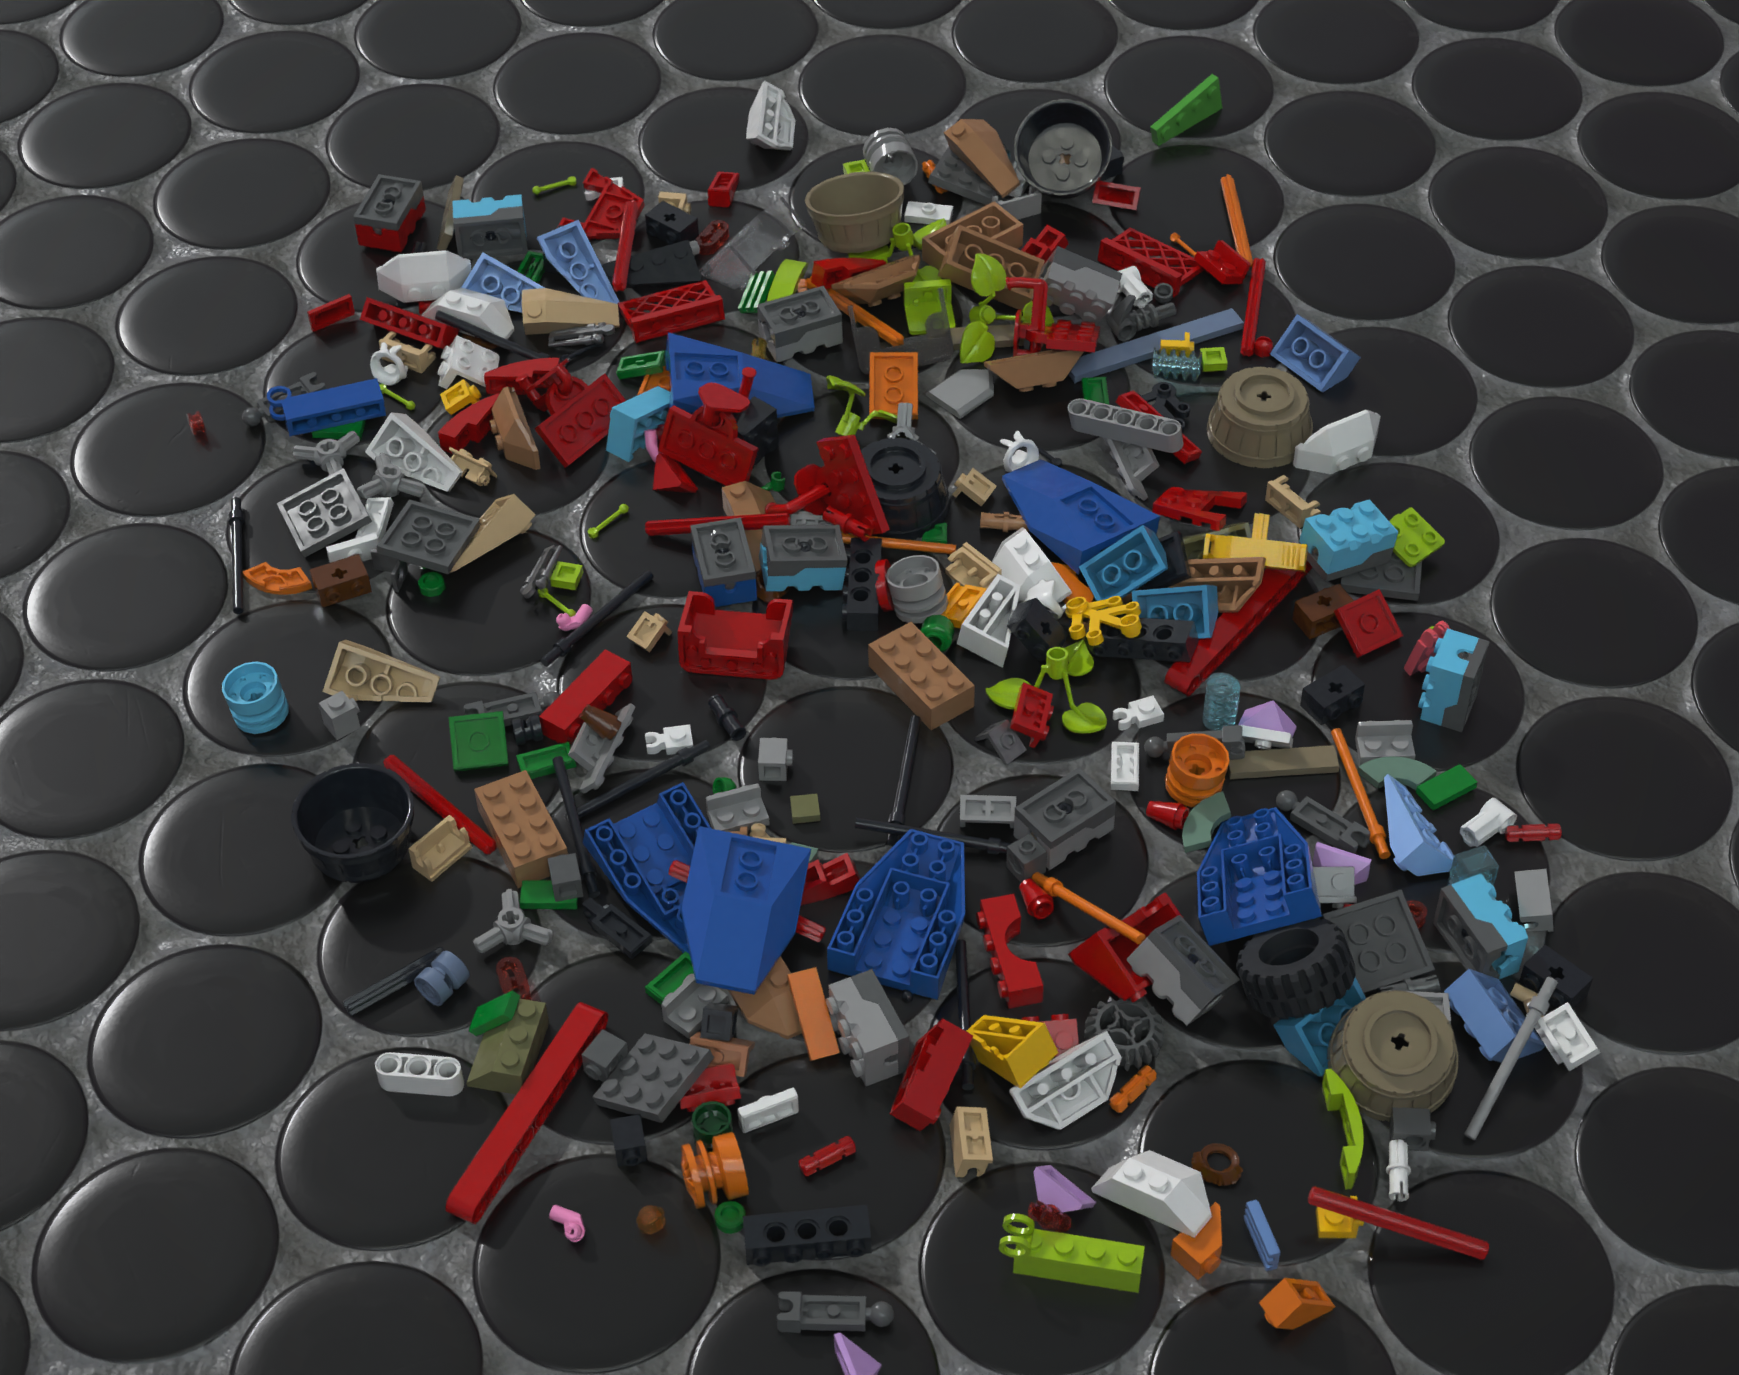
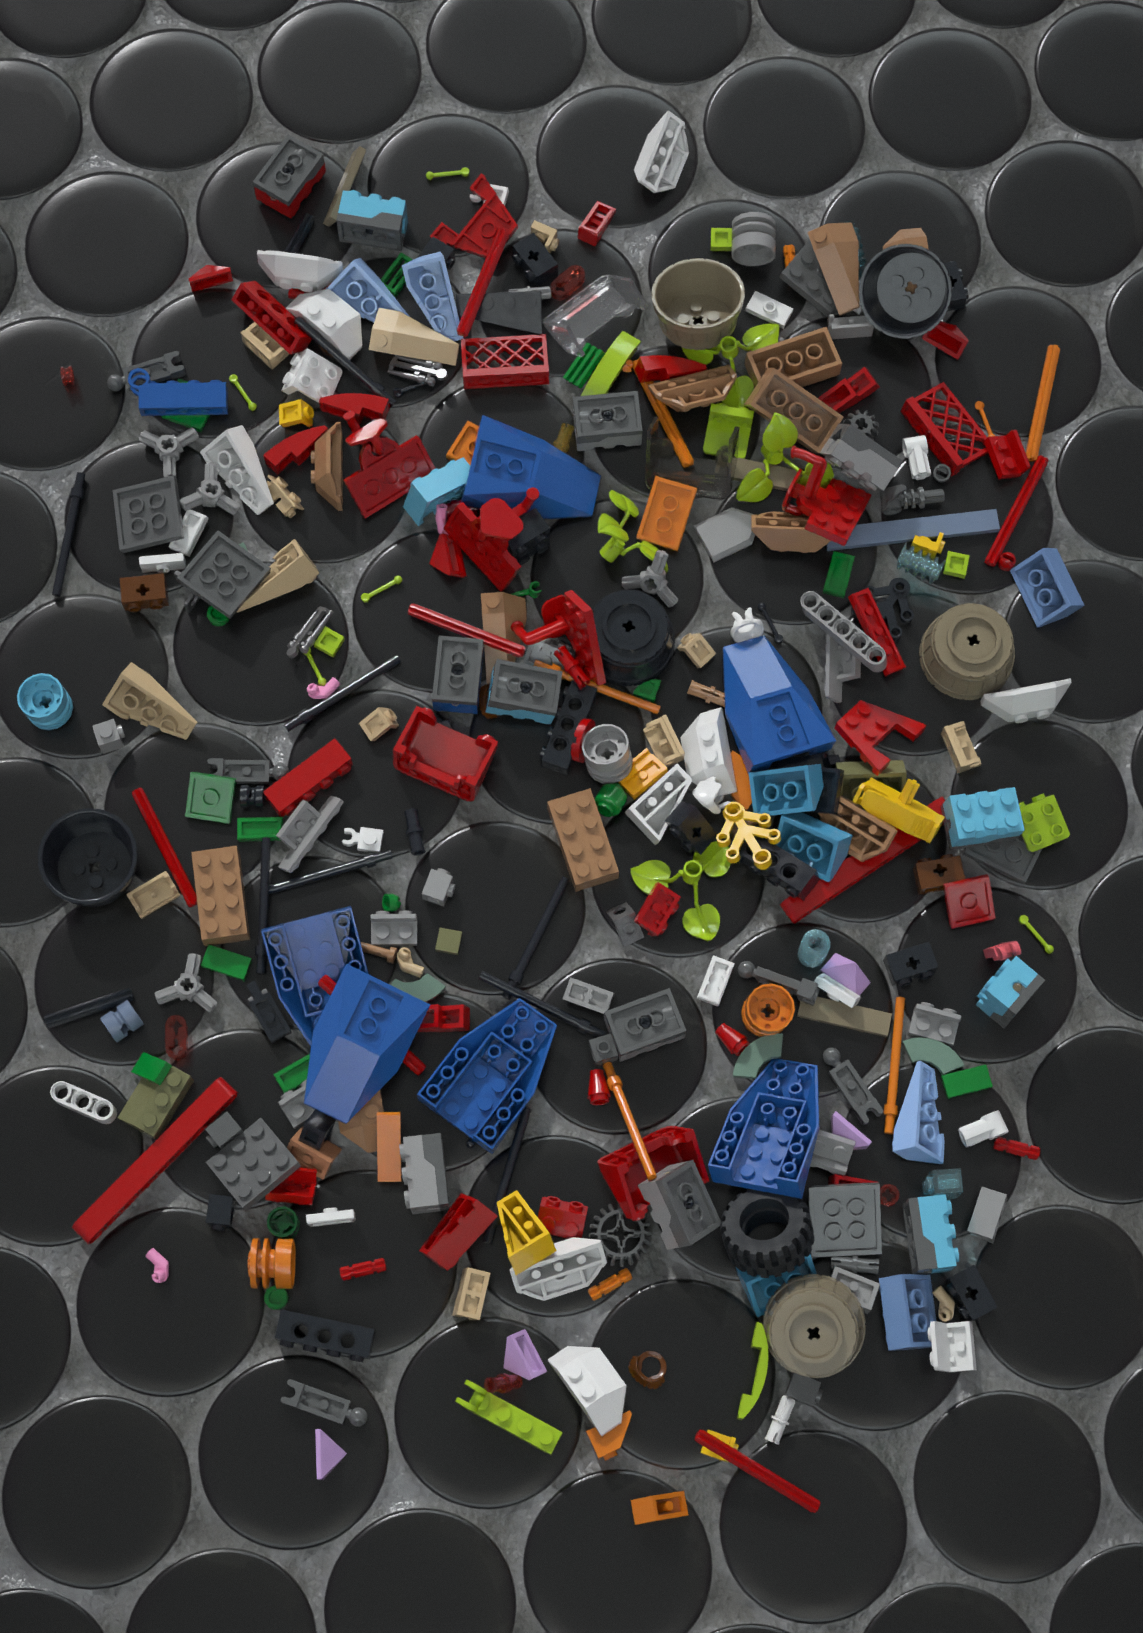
camera: 15 degrees right, 25 degrees up
(277, 581) = (94, 572): orange tile -> none
(391, 373) = (244, 363): white piece -> none
(565, 877) = (239, 957): dark grey brick -> none
(600, 721) = (309, 815): reddish brown cone -> none
(641, 365) = (465, 429): green tile -> none
(651, 1219) = (217, 1282): clear orange plate -> none
(1019, 978) = (557, 1160): red arch -> none
(1141, 711) = (751, 929): white plate -> none
(1189, 111) = (1050, 255): bright green wing -> none
(1262, 1235) = (656, 1442): medium blue tile -> none
(1538, 1007) = (934, 1333): light grey bar -> none

